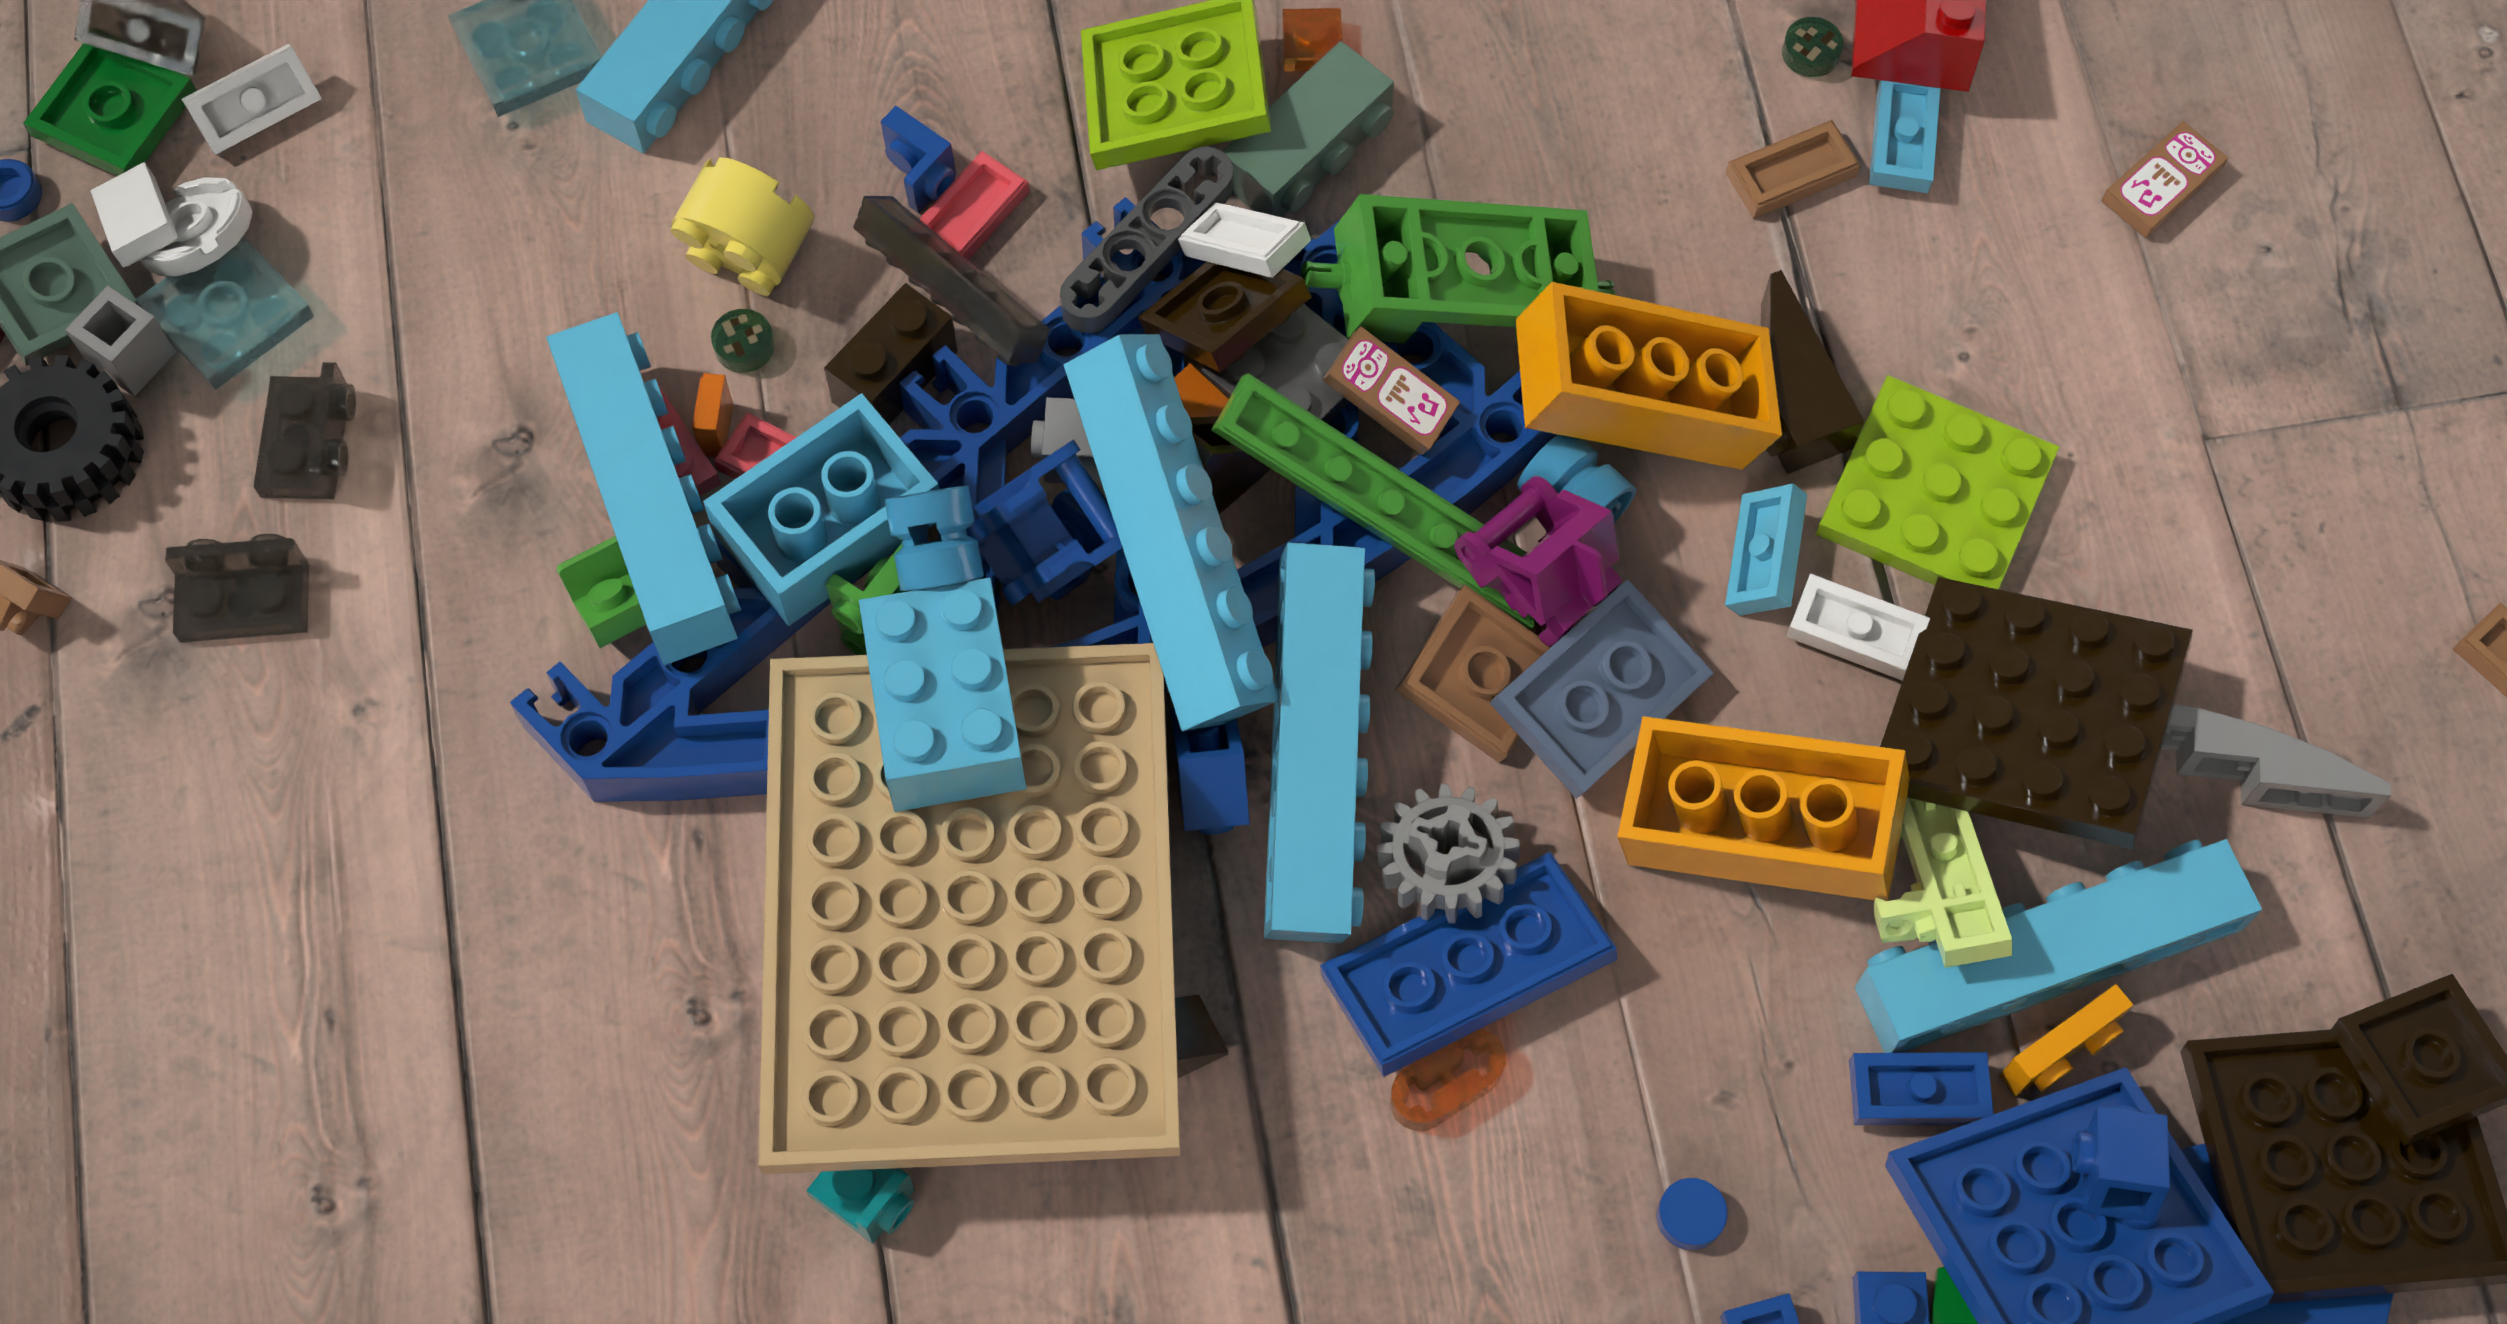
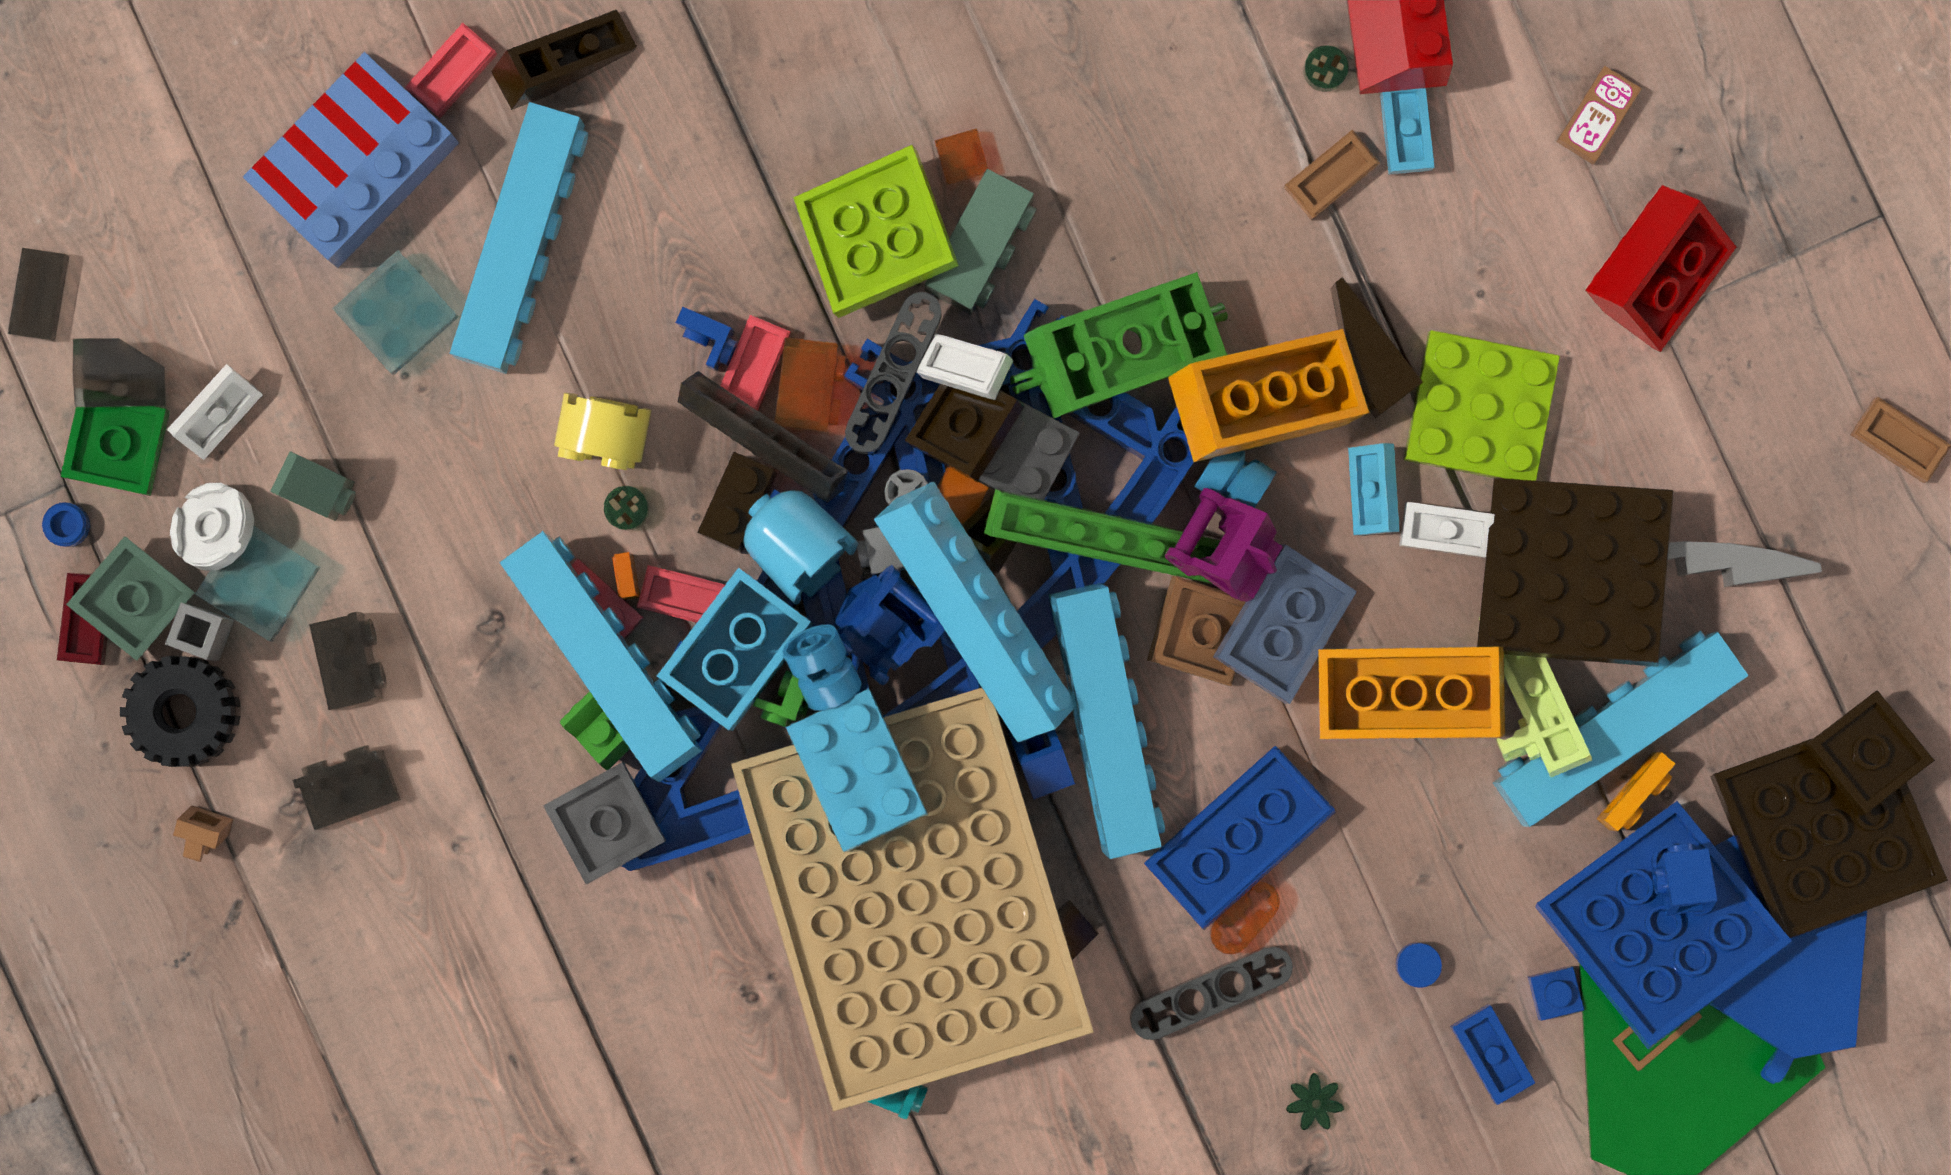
camera: 15 degrees left, 20 degrees up
(134, 215) = (169, 530): white tile -> none
(338, 201) = (314, 487): none -> sand green slope
(568, 698) = (604, 823): none -> flat silver plate
(954, 398) = (796, 542): none -> medium azure cylinder
(1034, 241) = (808, 386): none -> clear orange brick
(1374, 1186) = (1213, 998): none -> dark grey beam
(1391, 390) = (1094, 454): tile -> none
(1455, 878) = (1207, 787): light grey gear -> none
(1920, 1088) = (1548, 846): blue plate -> none
(2221, 370) = (1661, 267): none -> red slope

